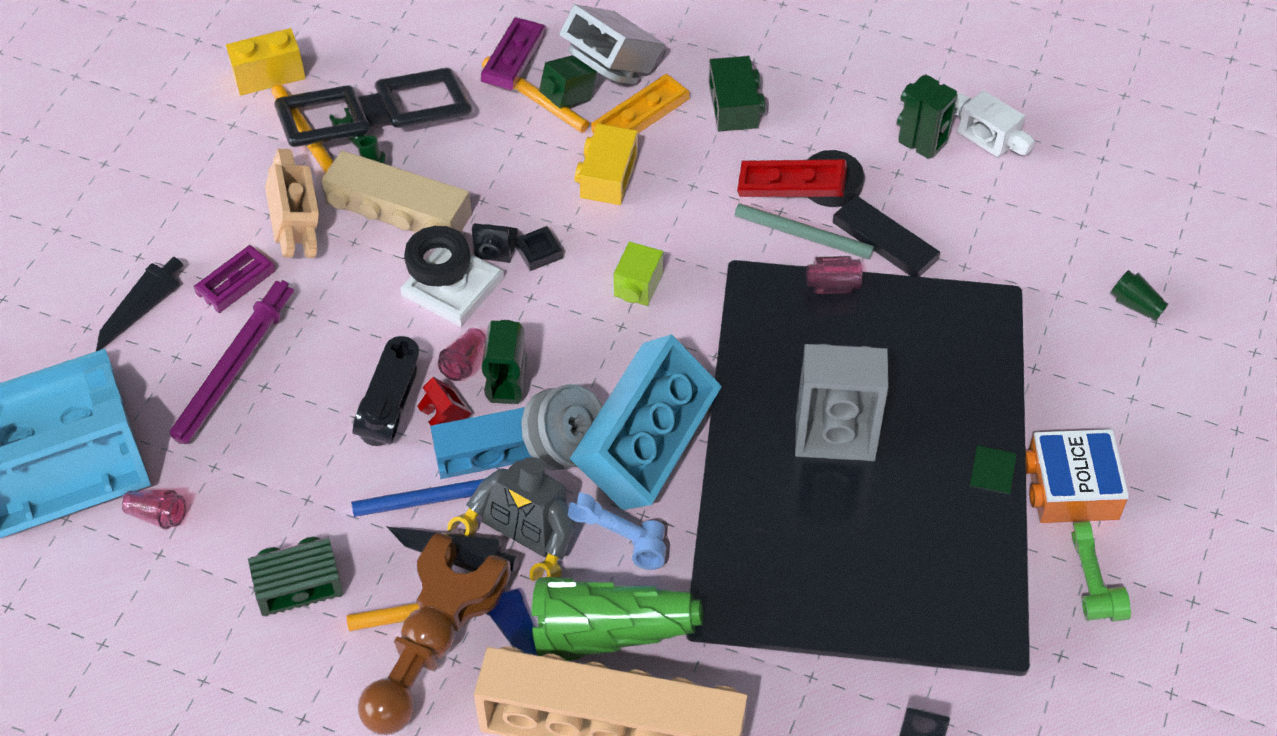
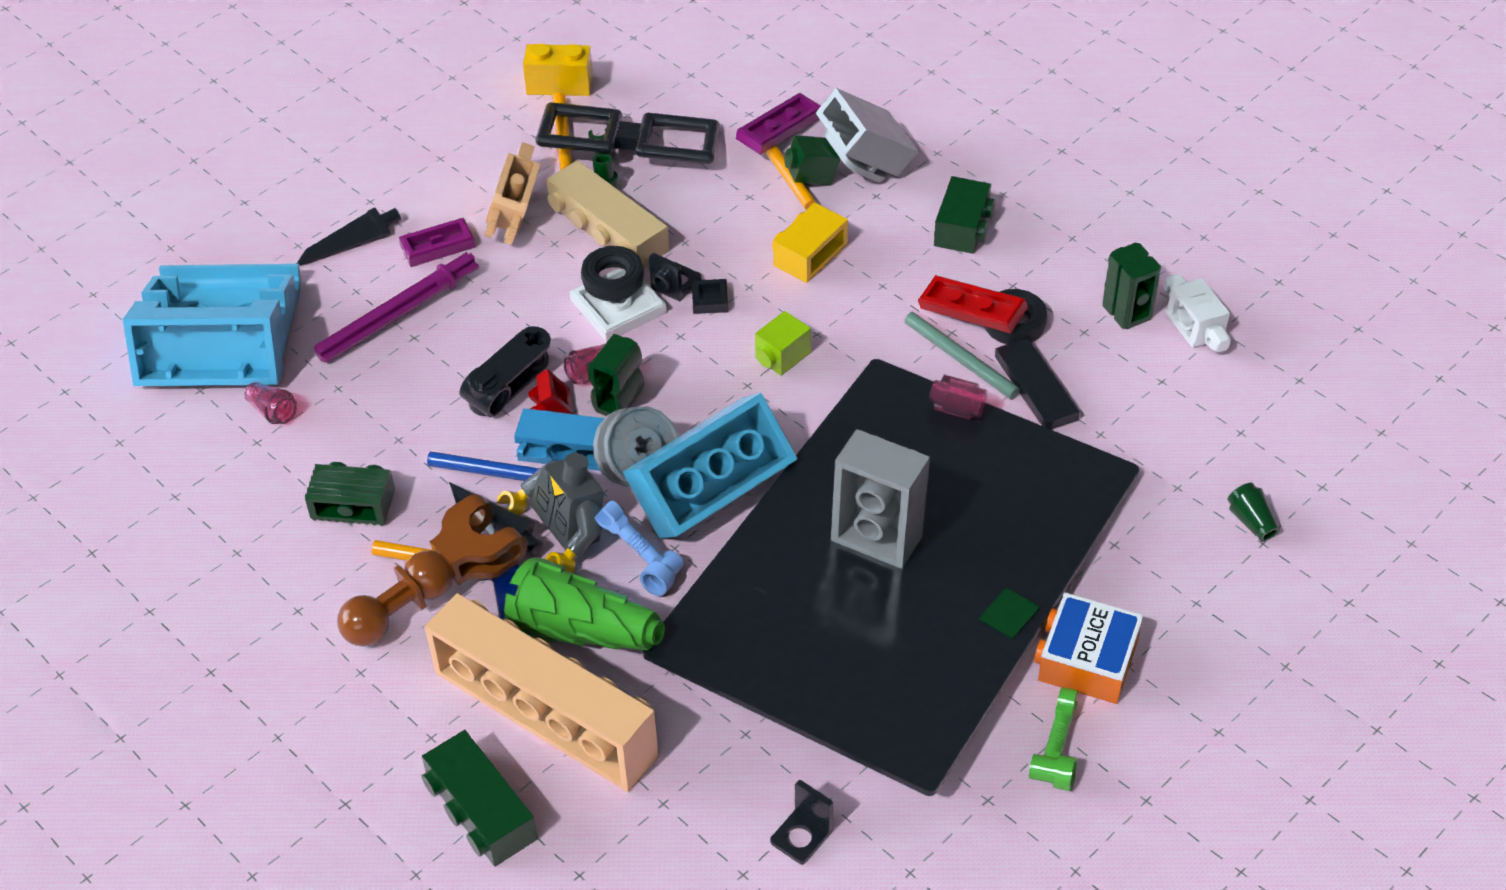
camera: 25 degrees right, 5 degrees down
(646, 105) = (877, 204): light orange tile -> none

